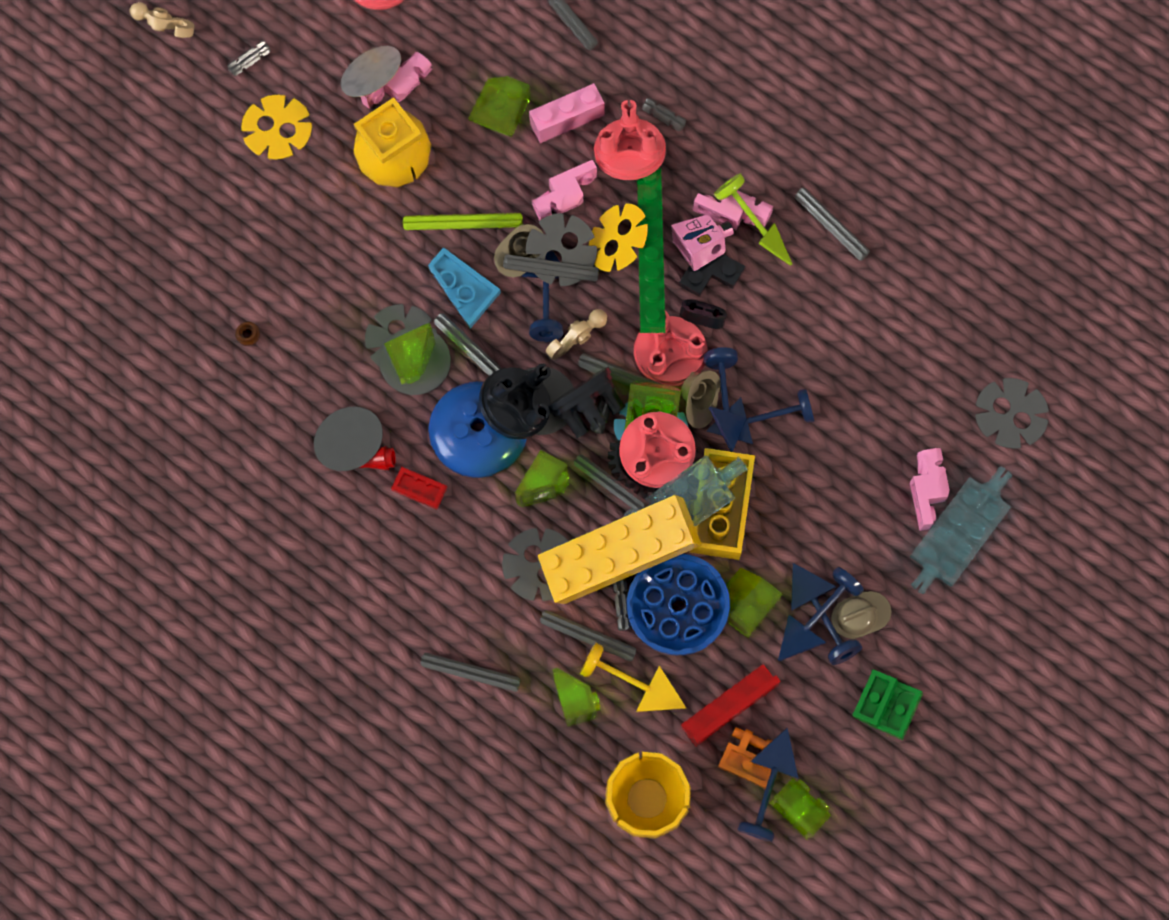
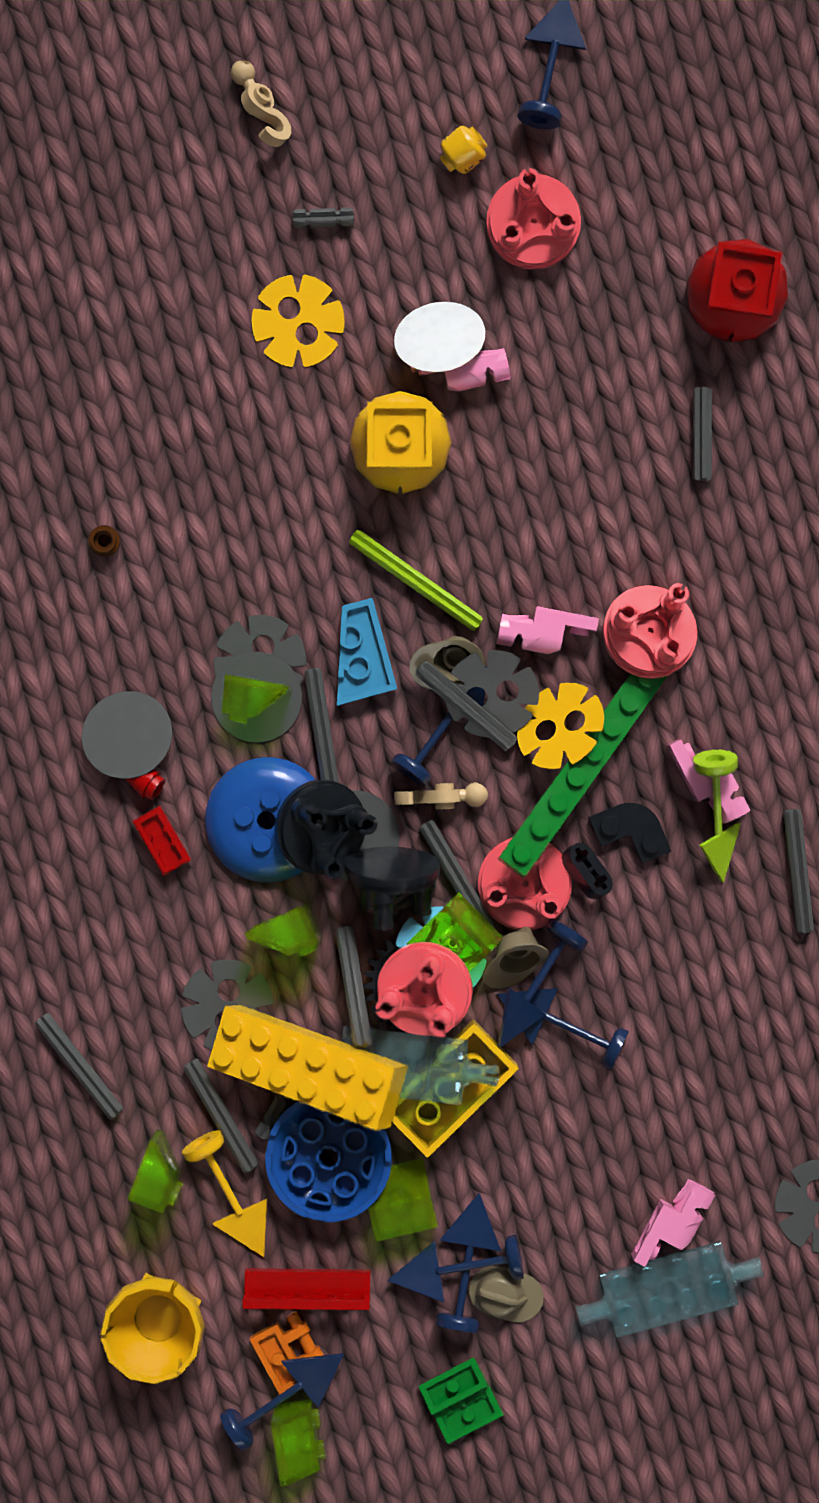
camera: 35 degrees right, 15 degrees up
(501, 104) = (551, 475): clear neon green slope -> none
(567, 113) = (614, 541): bright pink brick -> none
(664, 114) = (718, 616): dark grey axle -> none
(701, 240) = (645, 791): bright pink torso -> none

